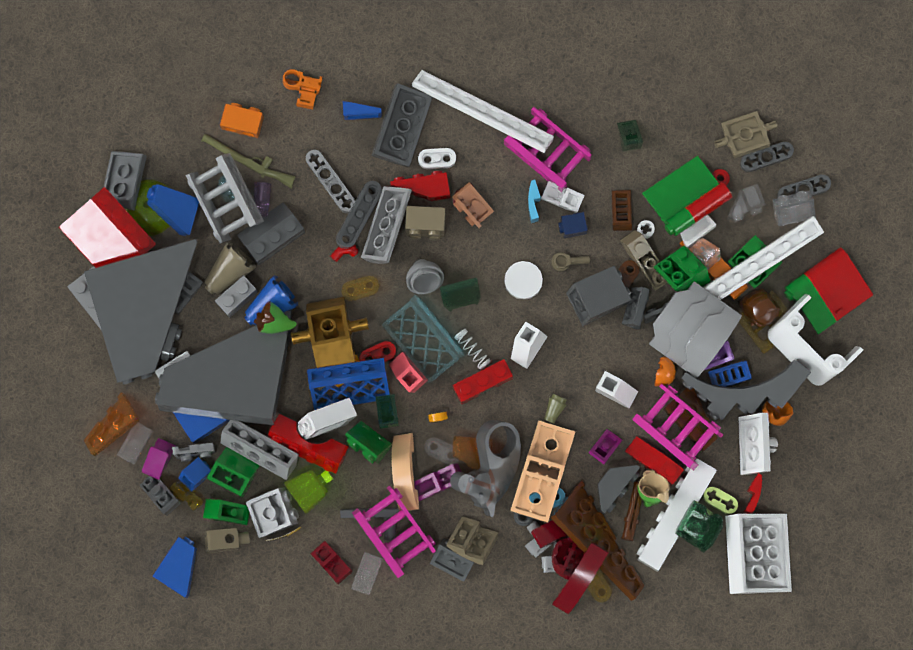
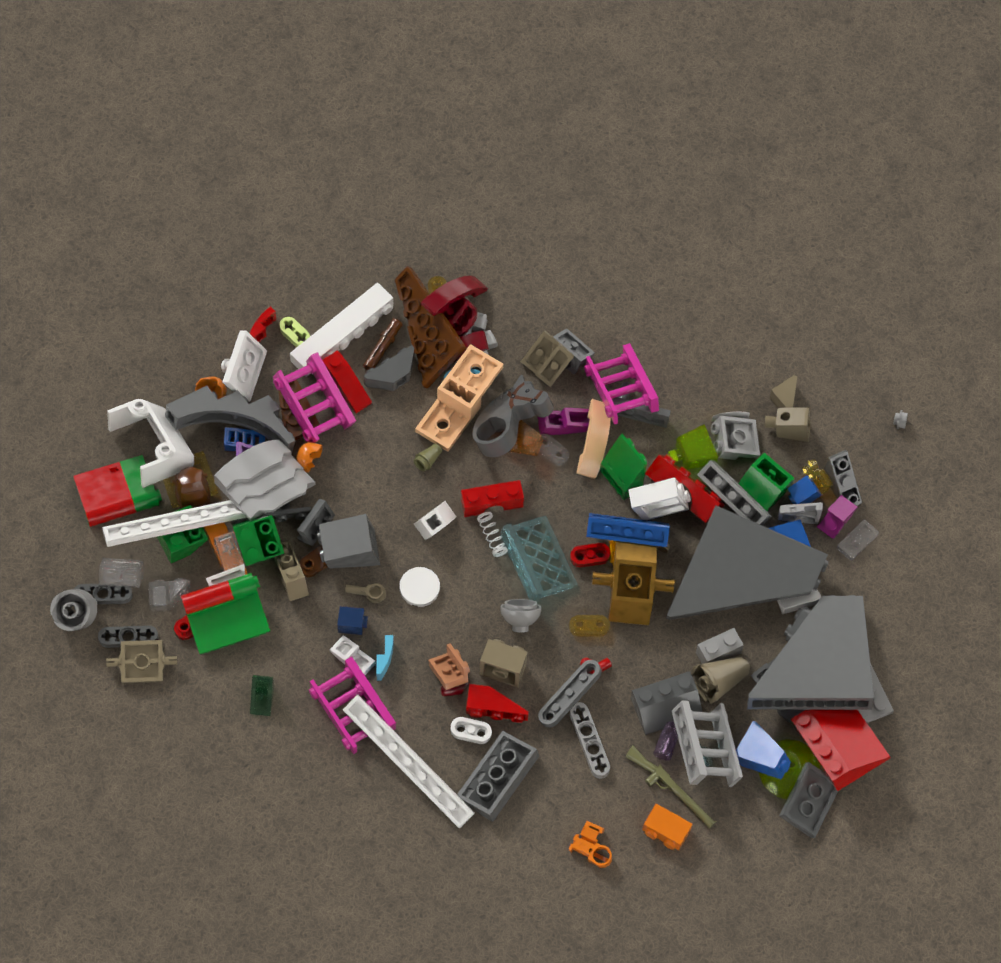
camera: 170 degrees left, 15 degrees down
(116, 423) = (876, 561): clear orange wing -> none
(121, 580) = (900, 419): none -> light grey plate
(178, 566) = (842, 415): blue slope -> none
(226, 511) = (783, 450): green slope -> none
(236, 571) = (784, 394): none -> dark tan slope
(272, 292) = (684, 631): blue cone -> none
(273, 320) = (689, 602): bright green hat -> none
(331, 562) = (689, 381): dark red slope -> none
(358, 111) = (539, 801): blue slope -> none
(367, 573) = (659, 360): clear plate -> none
(386, 224) = (544, 671): light grey slope -> none
(387, 411) = (596, 494): clear green slope -> none
(407, 373) = (565, 526): coral slope -> none
(438, 417) = (546, 480): light orange tile -> none
(460, 294) = (488, 588): clear green slope -> none
(605, 446) = (394, 402): magenta slope -> none
(616, 389) = (363, 455): white slope -> none
(622, 222) = (299, 610): reddish brown slope -> none
(651, 226) = (277, 594): white bush -> none
(653, 488) = (356, 350): tan hat -> none
(700, 526) = (324, 307): clear green slope -> none
(758, 553) = (277, 275): white slope -> none
(822, 159) = (64, 615): none -> light grey brick

